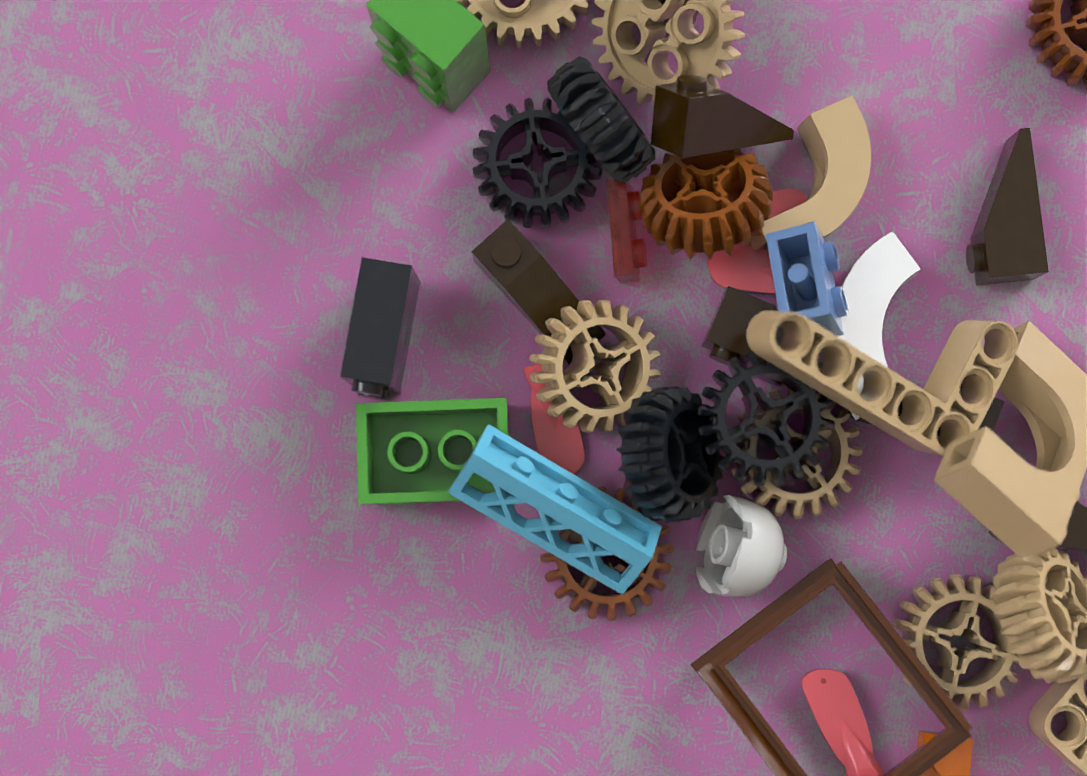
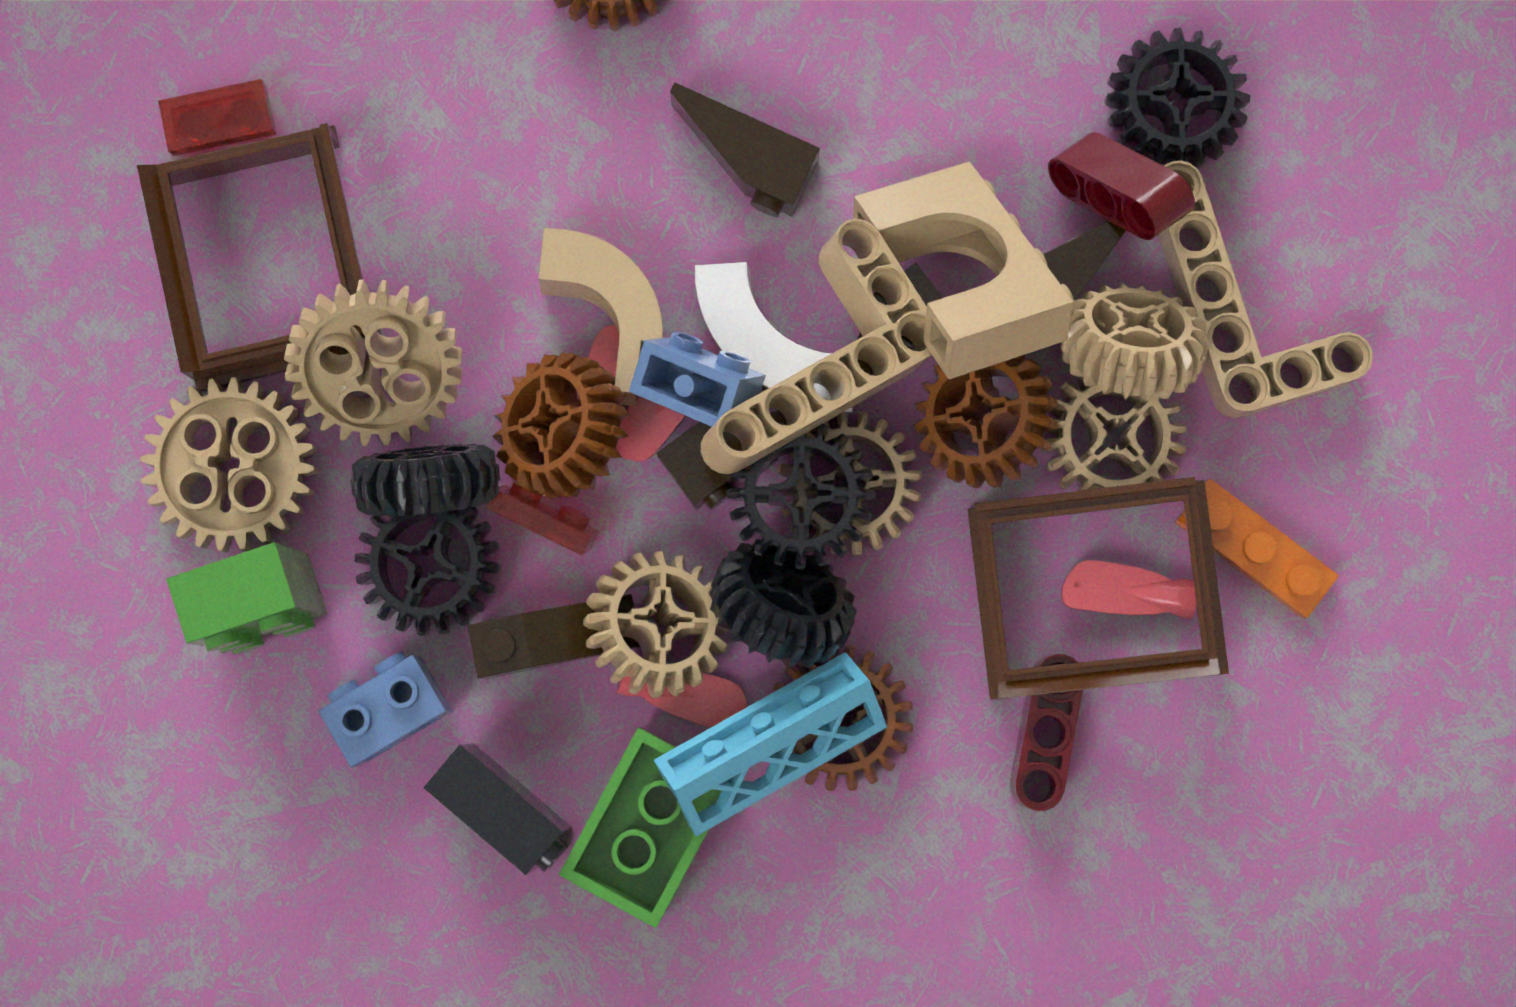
camera: 60 degrees left, 0 degrees up
(406, 196) = (384, 709): none -> medium blue brick
(666, 724) = (1052, 760): none -> dark red beam
(704, 120) = (485, 386): dark brown slope -> none
(741, 548) = (910, 588): white cylinder -> none
(896, 499) = (995, 453): none -> dark orange gear

